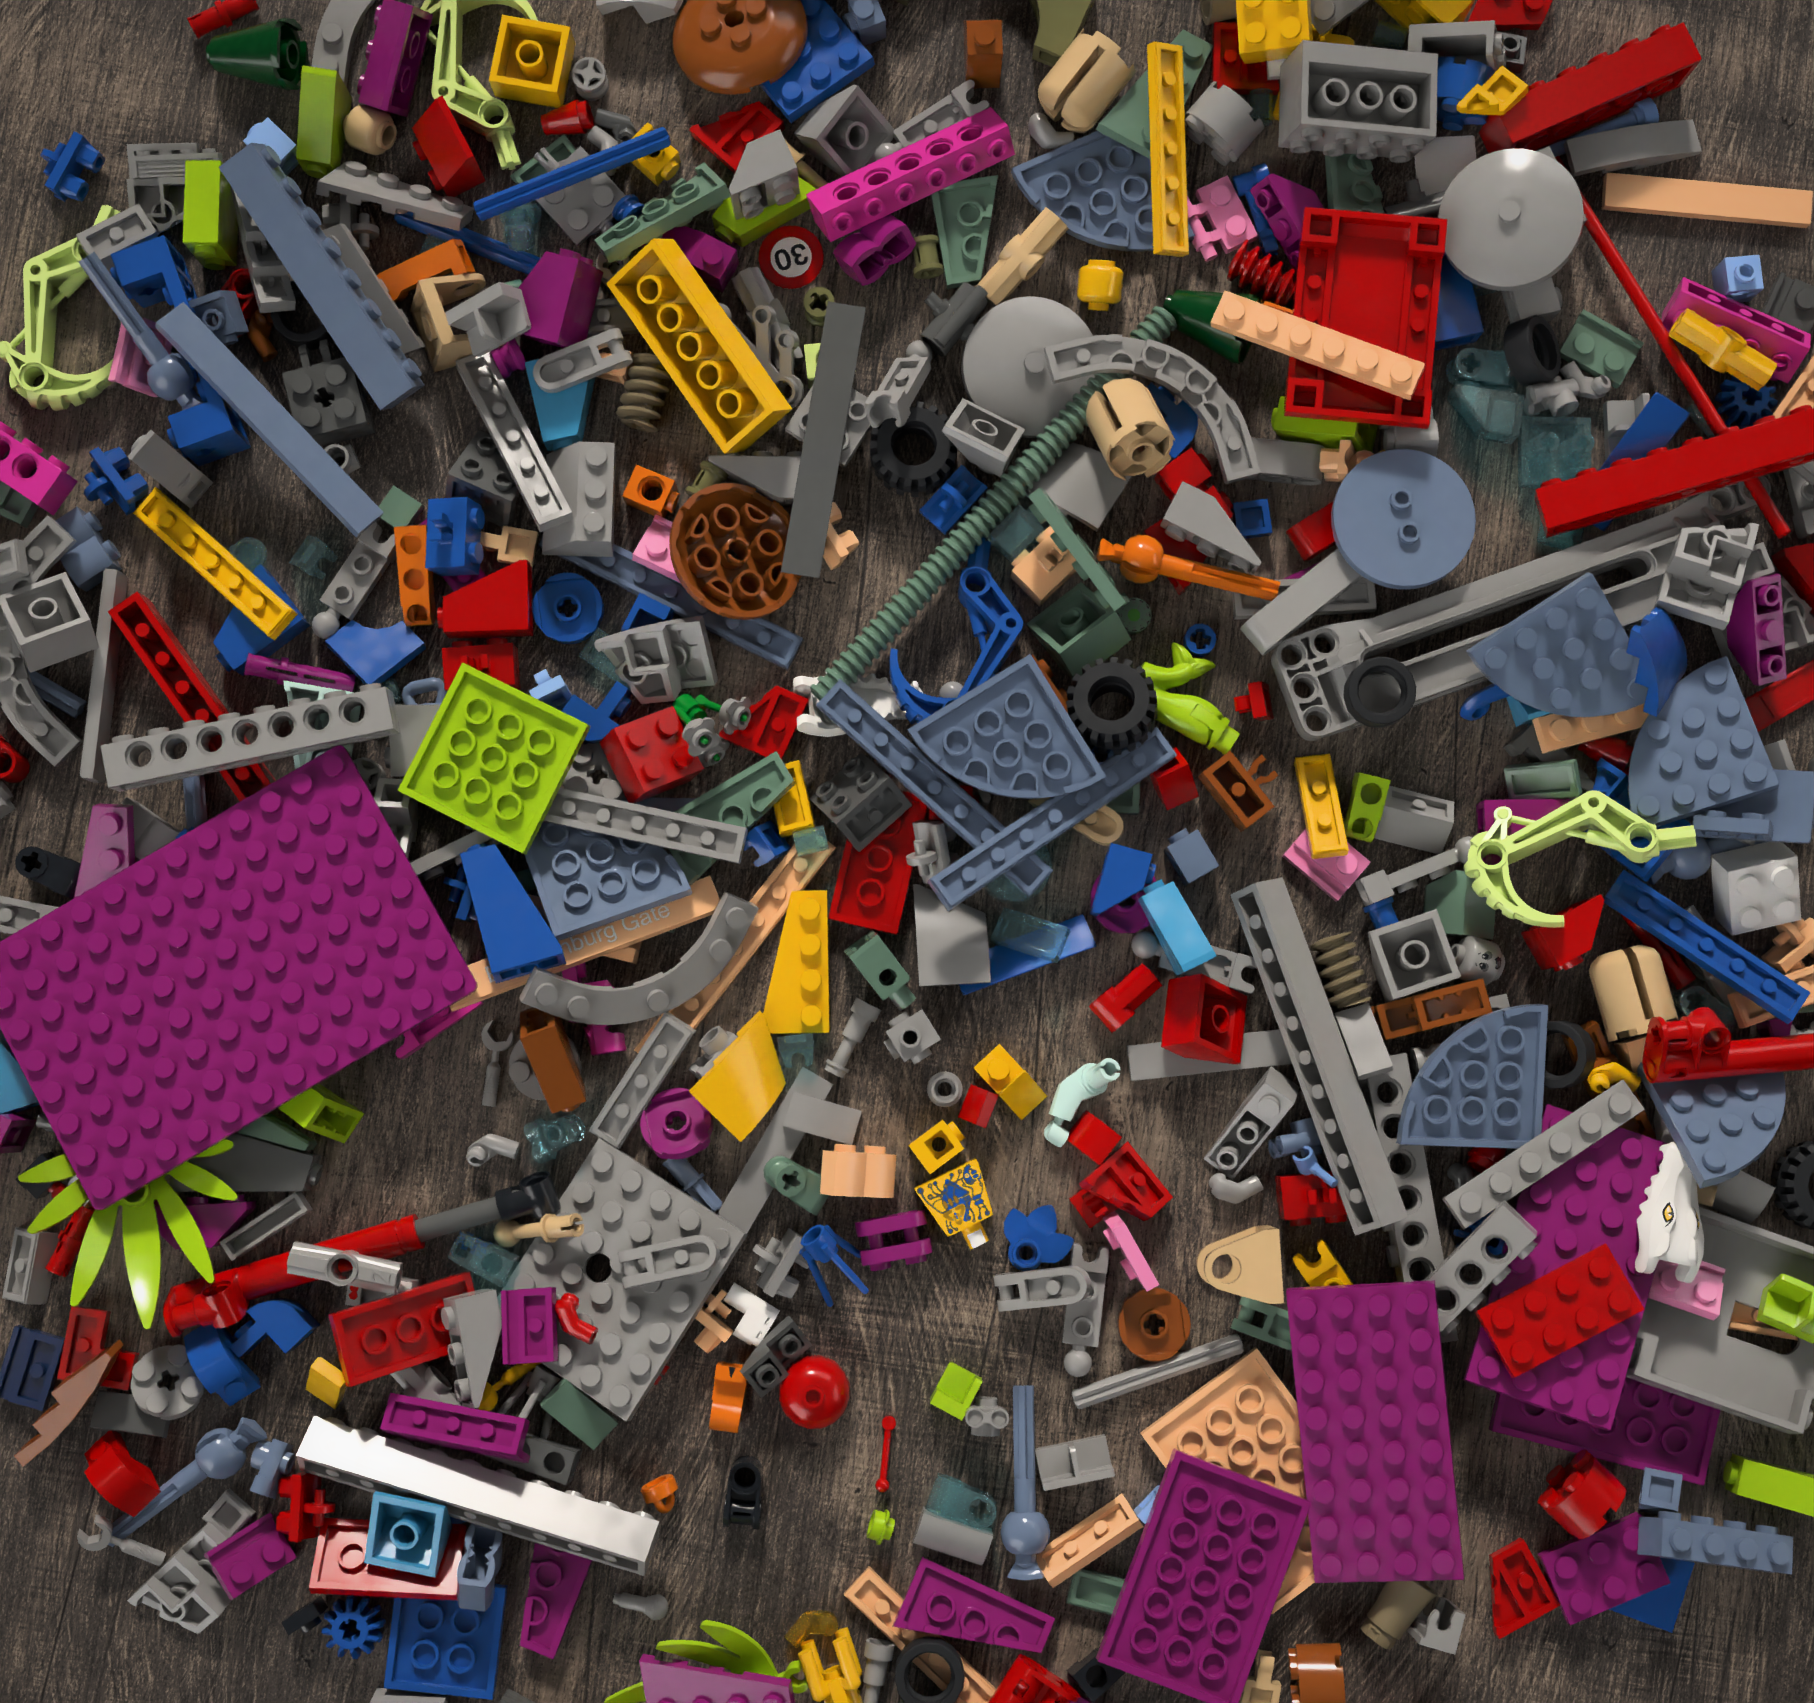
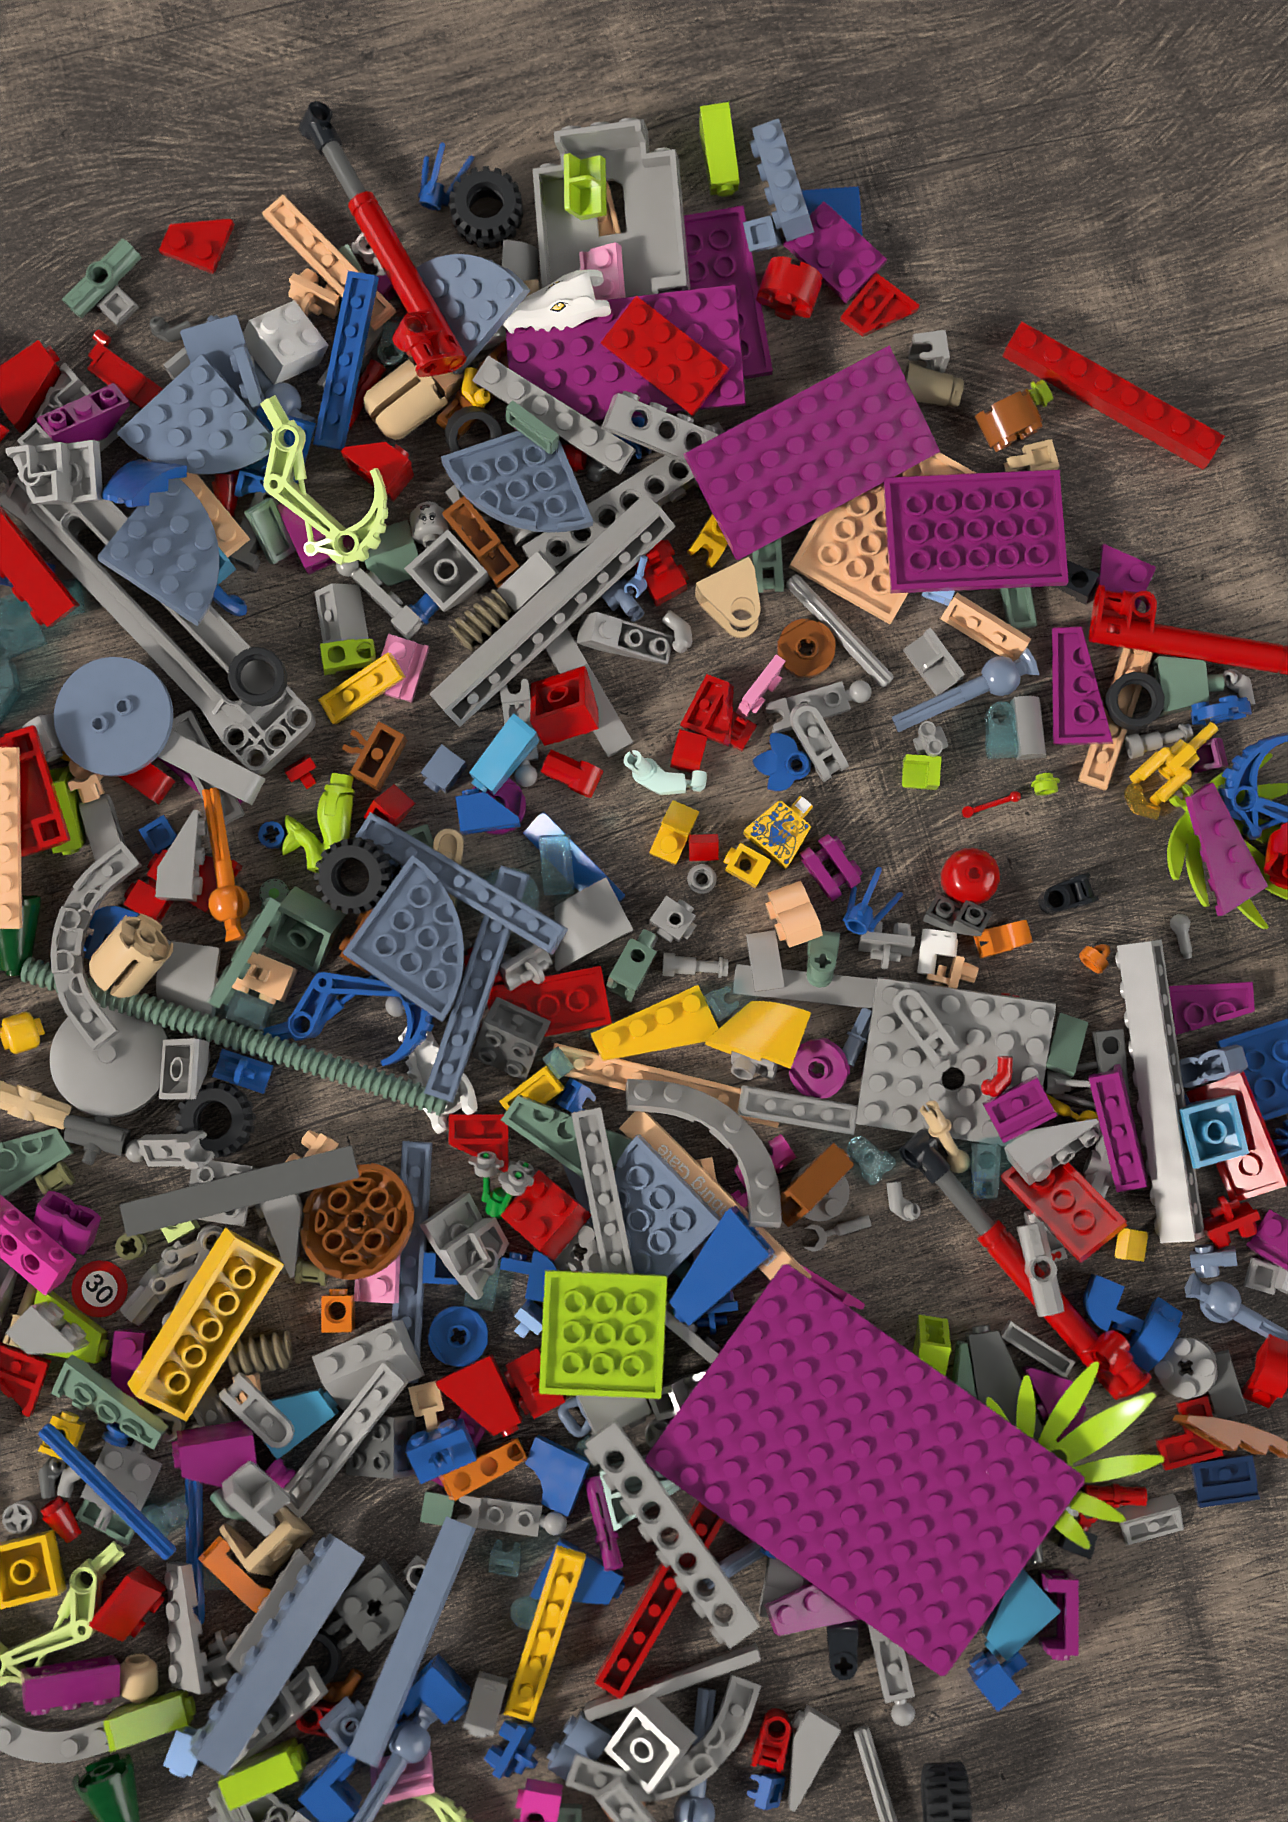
camera: 110 degrees left, 0 degrees up
(1538, 1122) = (532, 427): none -> sand green tile

